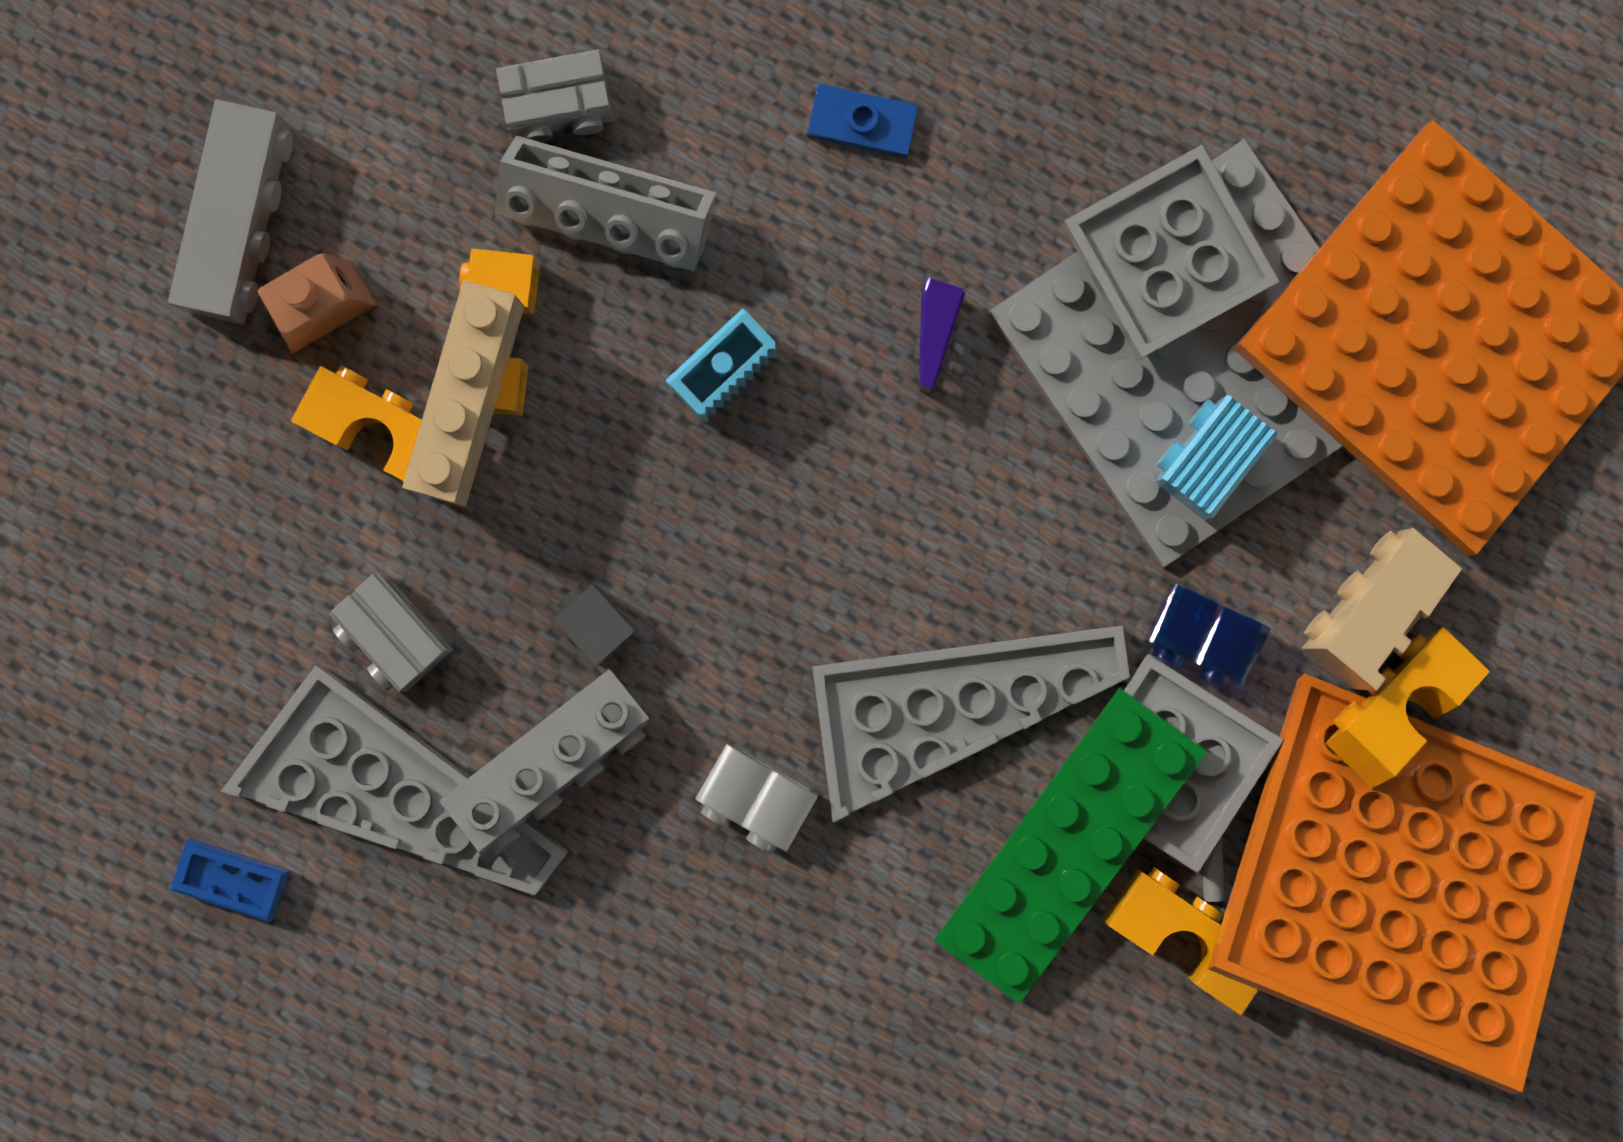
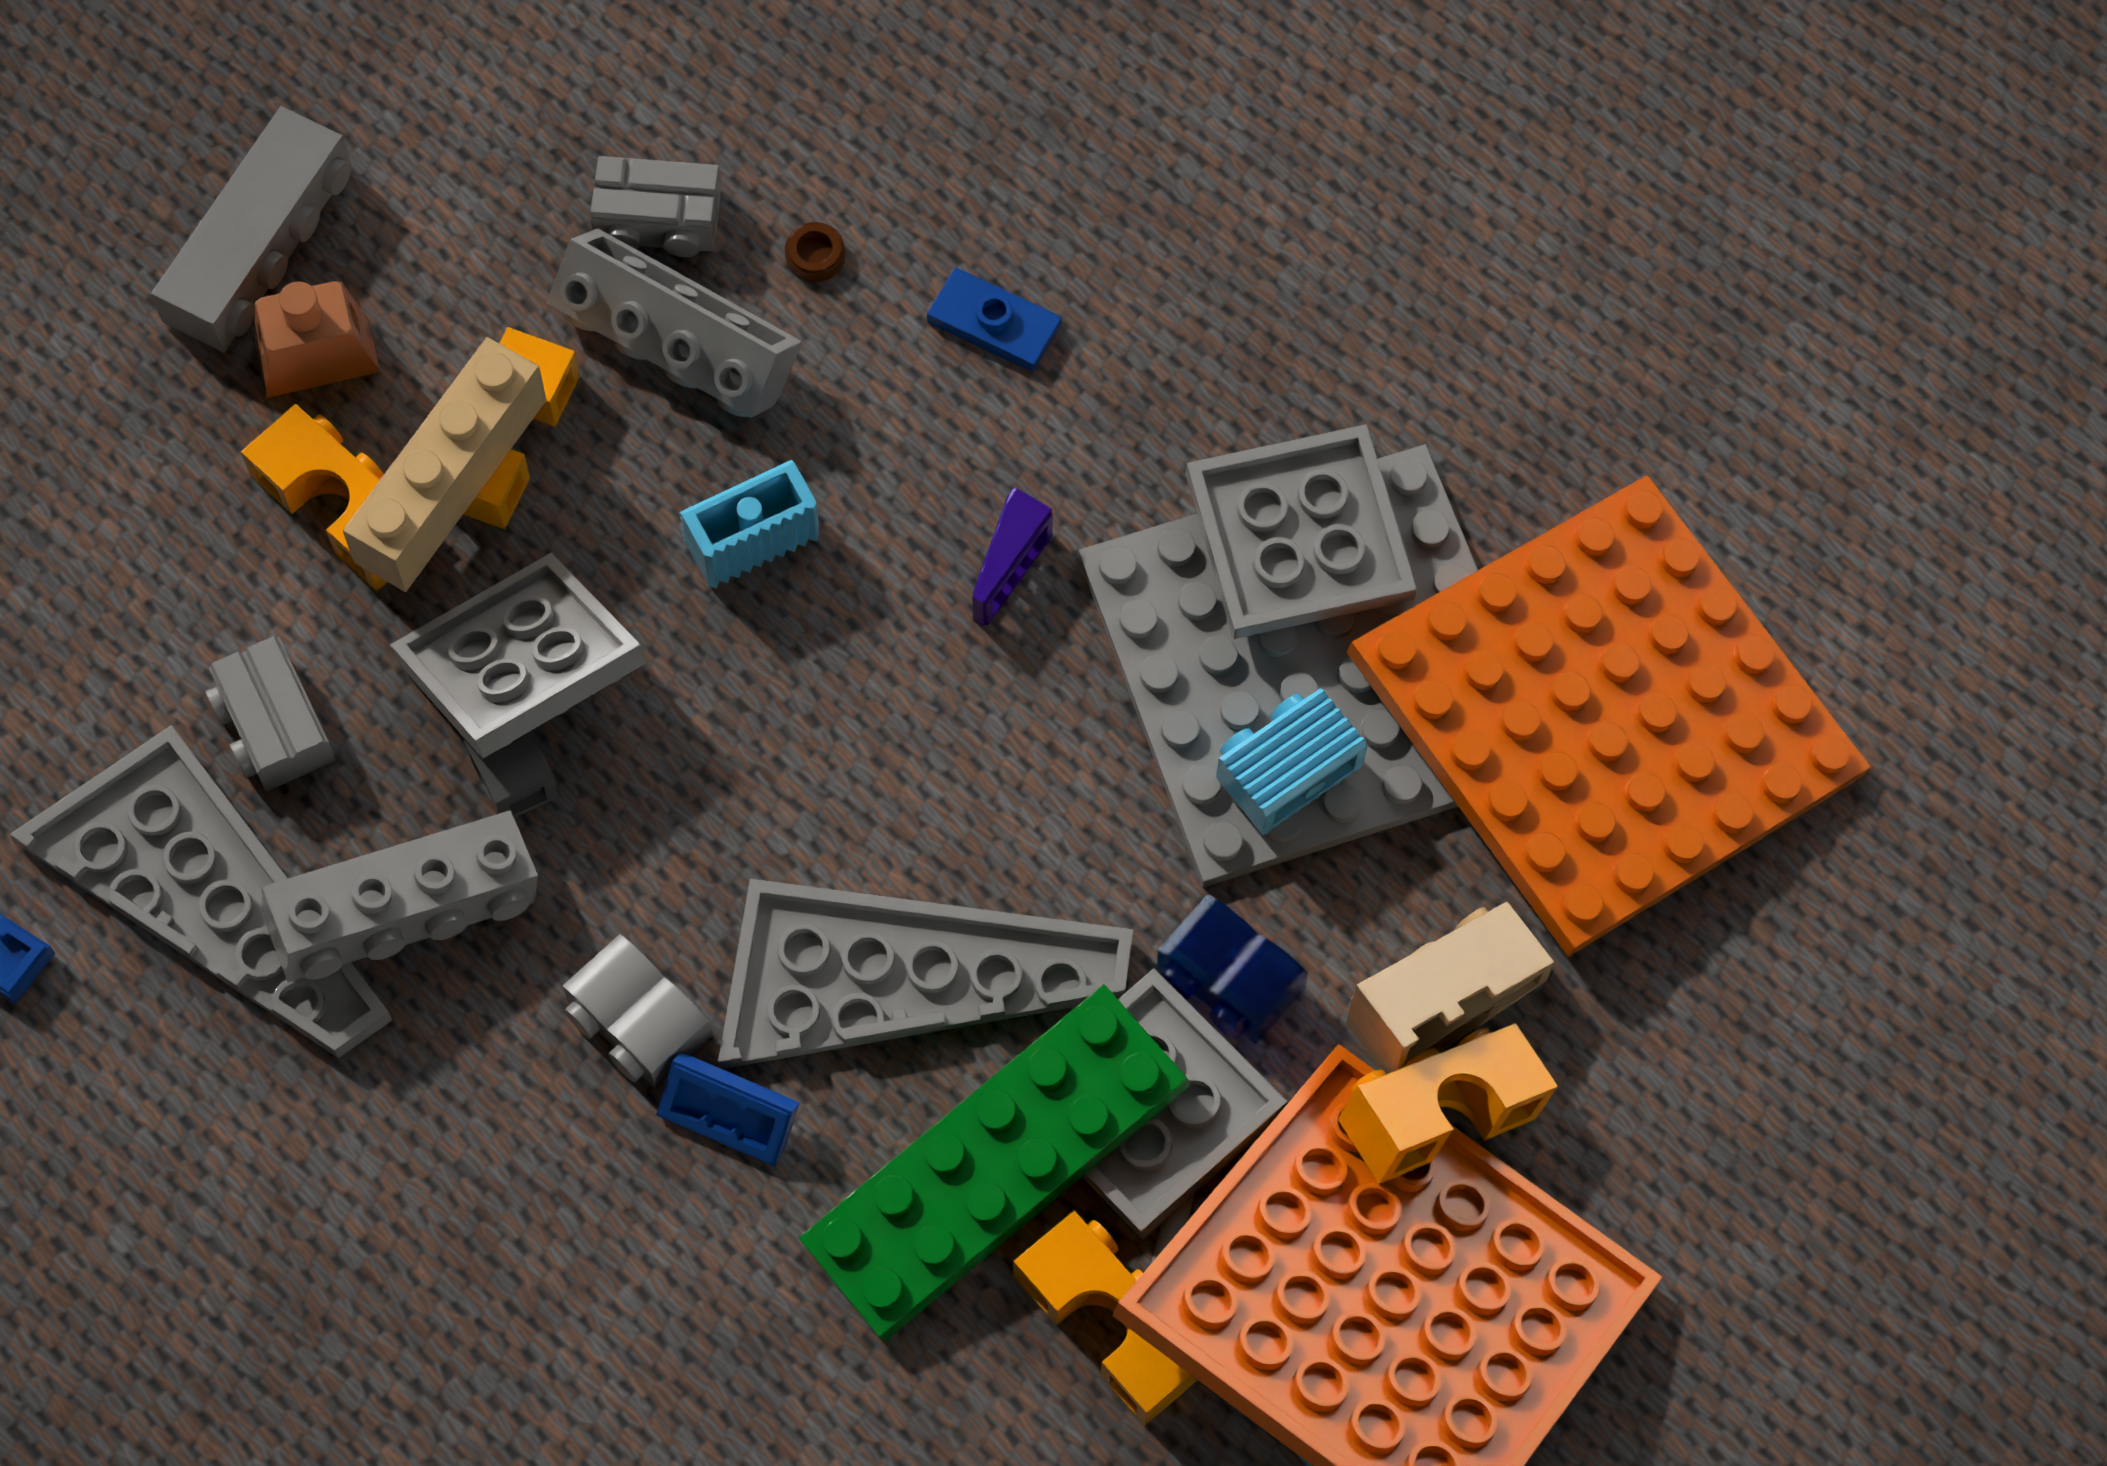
camera: 15 degrees right, 20 degrees down
(573, 535) = (518, 654): none -> light grey plate
(697, 99) = (814, 252): none -> reddish brown tile
(850, 855) = (727, 1108): none -> blue plate

